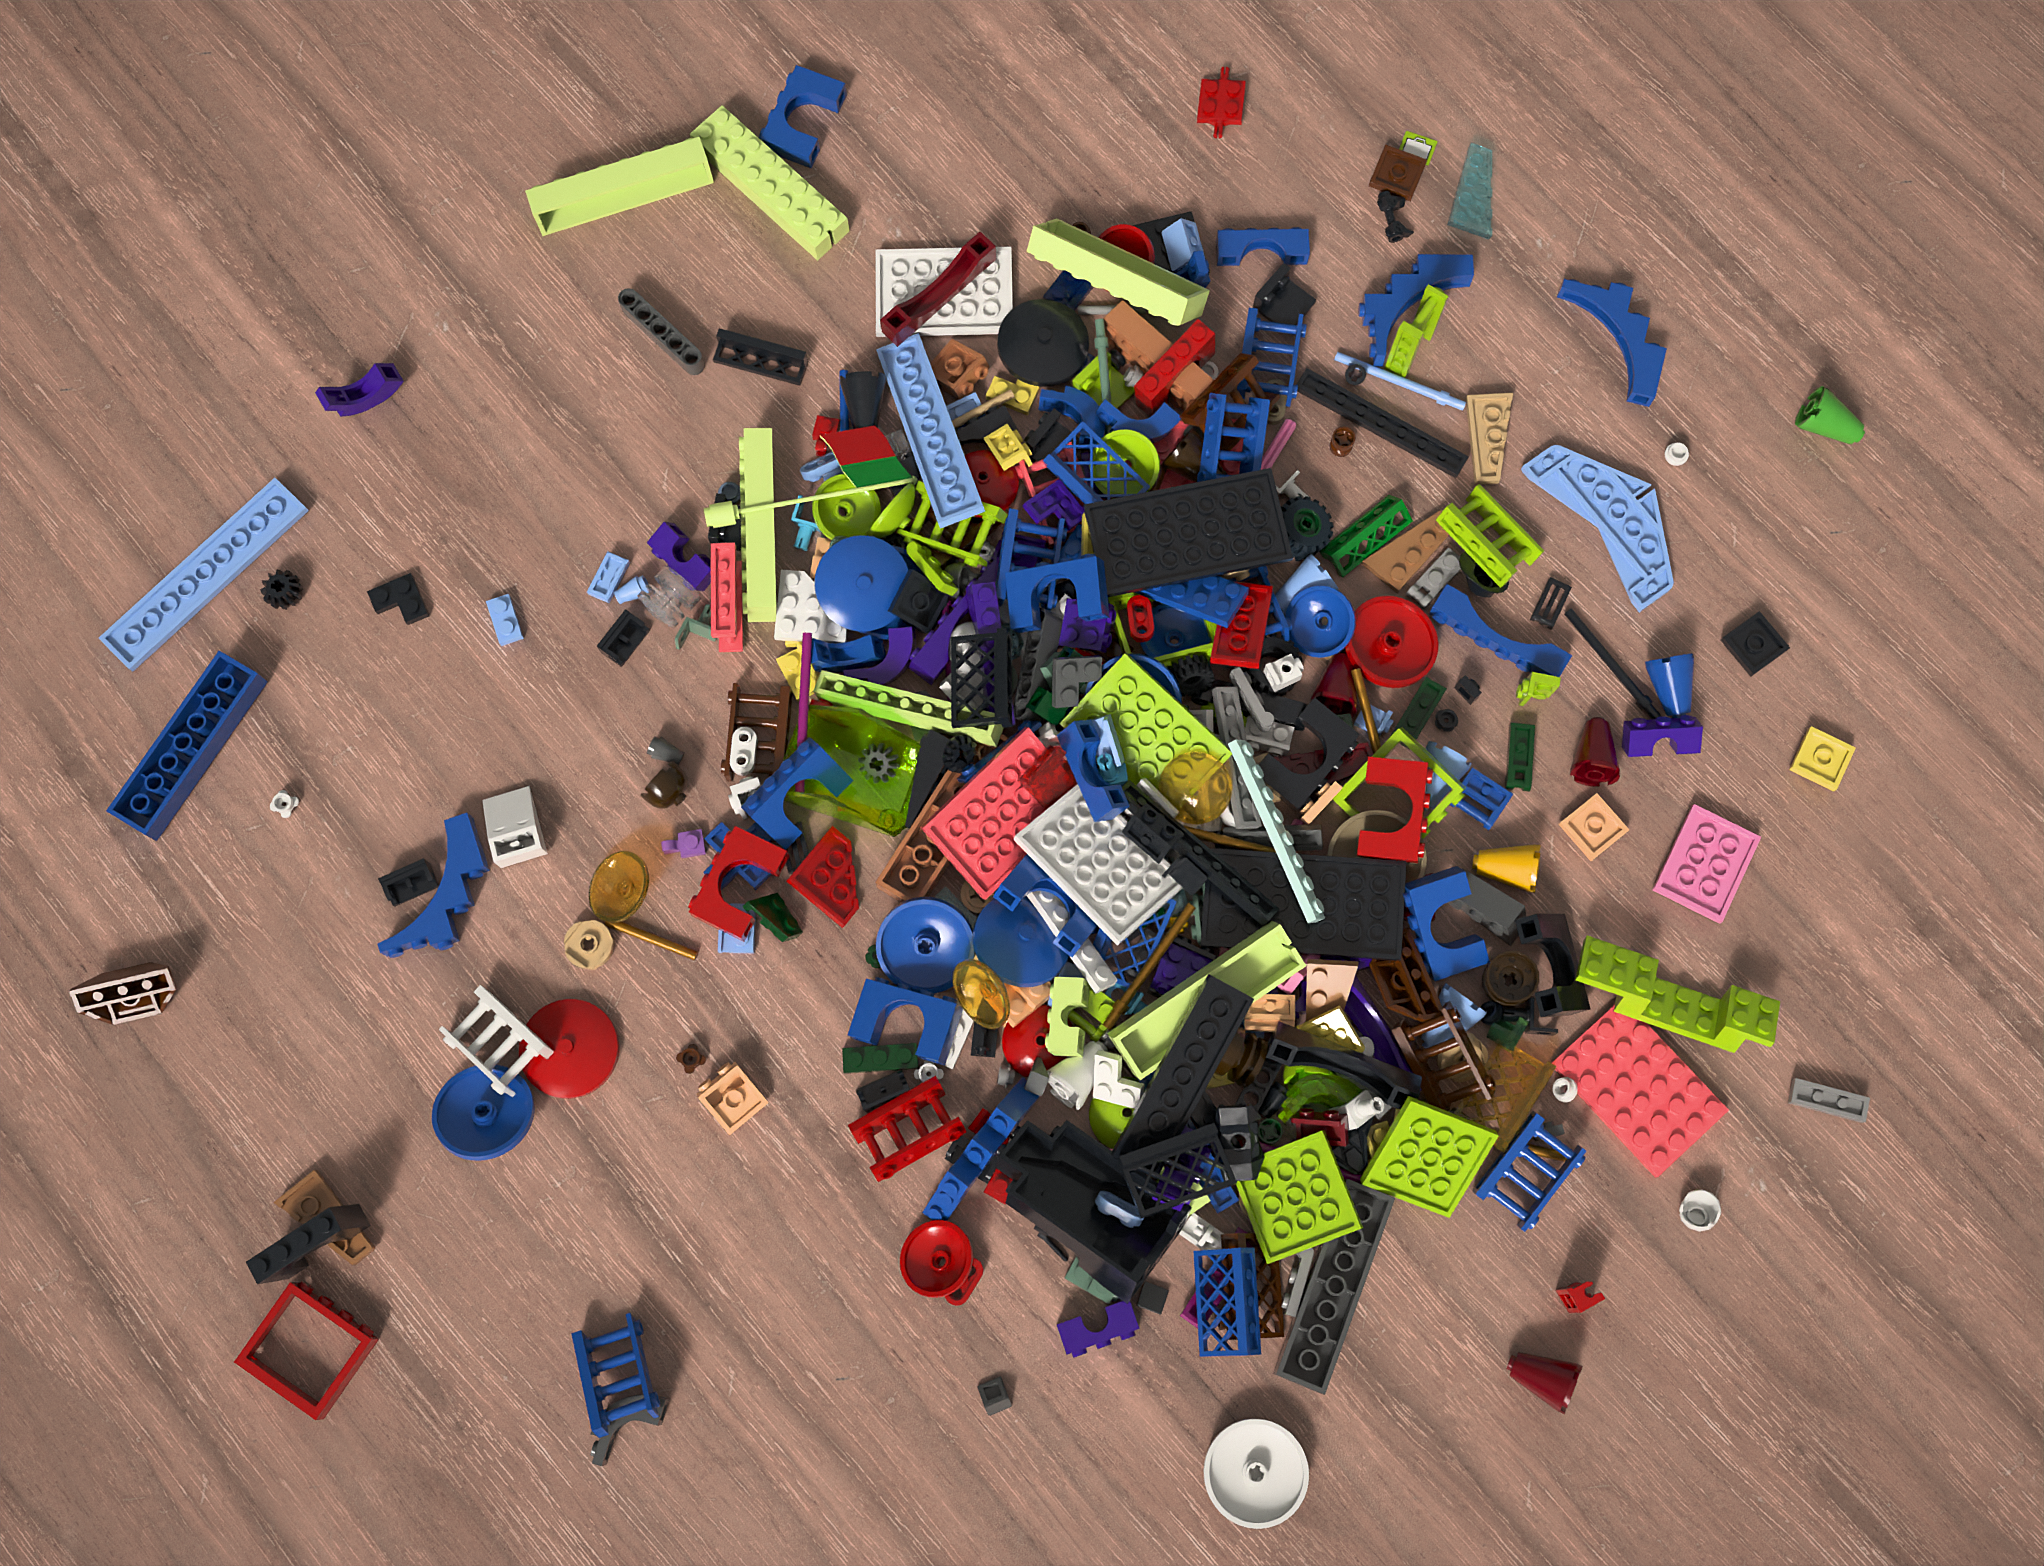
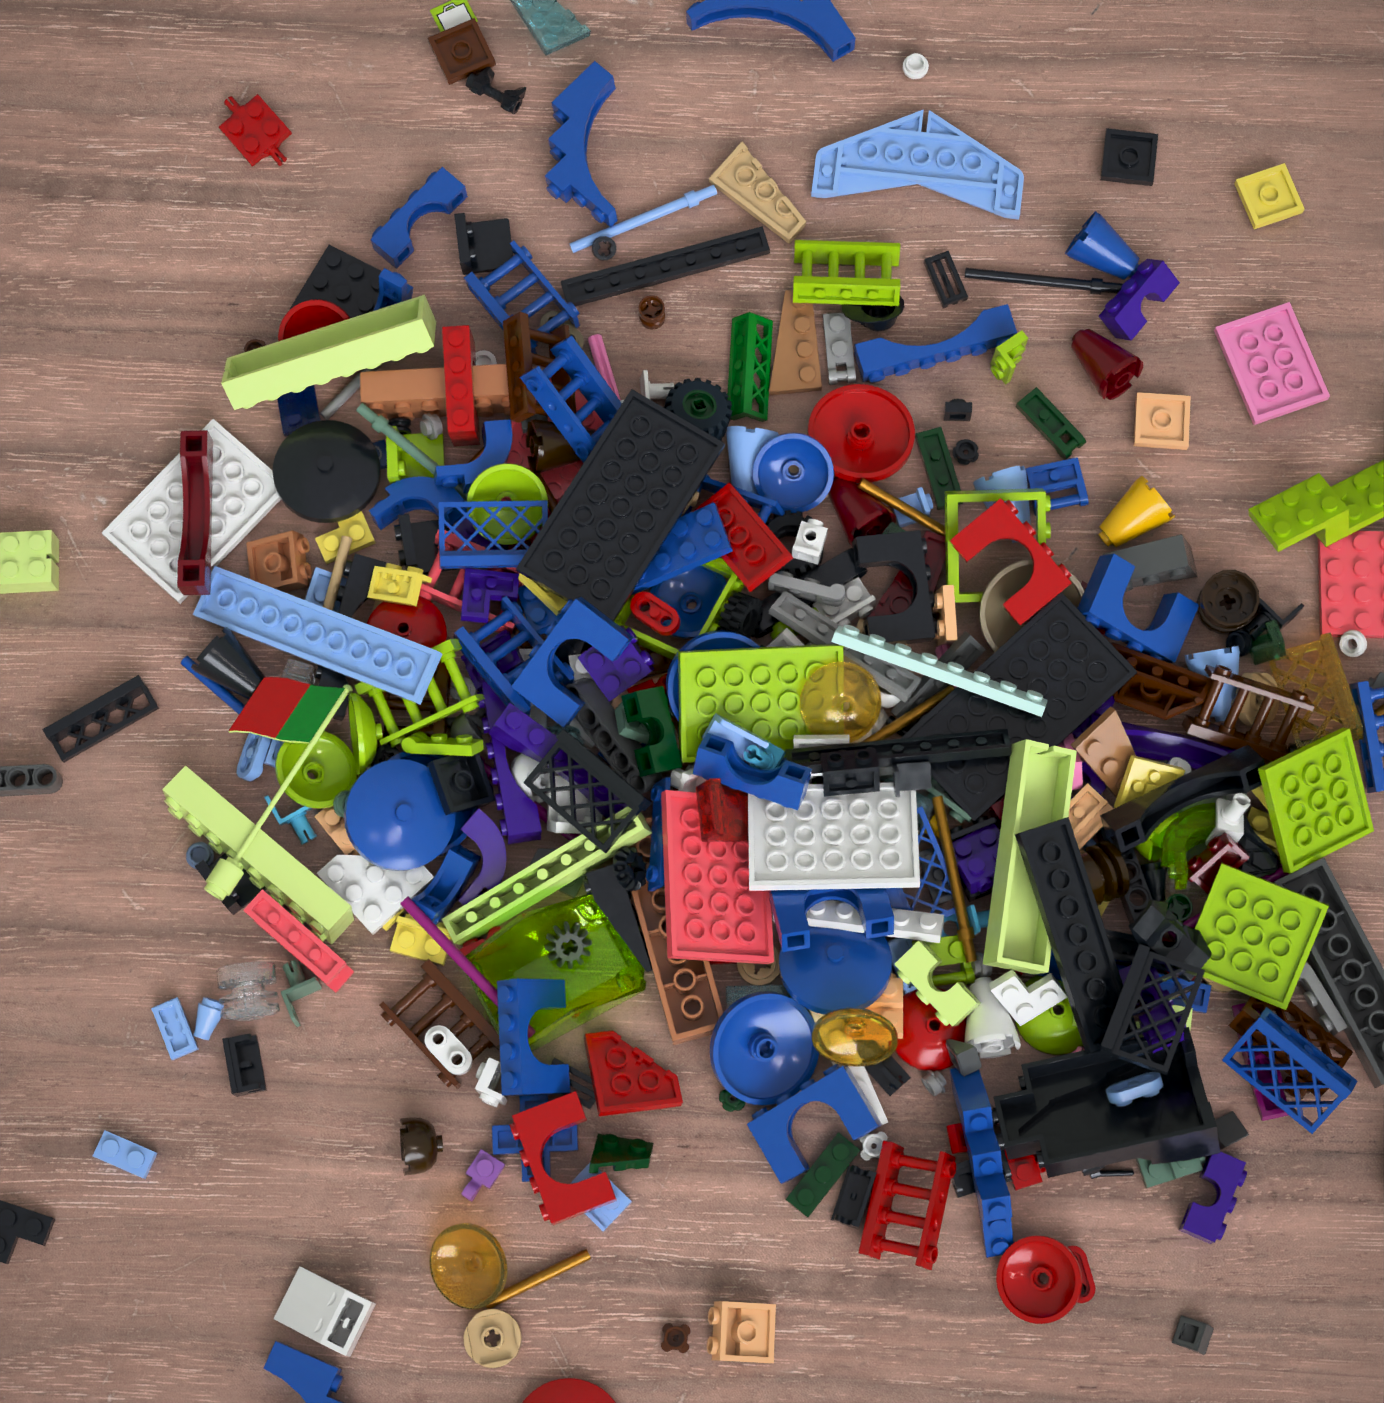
camera: 45 degrees left, 0 degrees up
(663, 750) = (380, 1119): dark grey cone -> none
(668, 545) = (198, 950): dark purple arch -> none
(822, 426) = (220, 722): red plate -> none
(1068, 674) = (652, 716): dark grey plate -> none
(1180, 242) = (353, 279): light blue panel -> none
(1201, 1233) = (1214, 1040): white hips -> none
(1410, 334) = (625, 174): lime fence -> none
(1554, 938) = (1224, 537): black arch -> none

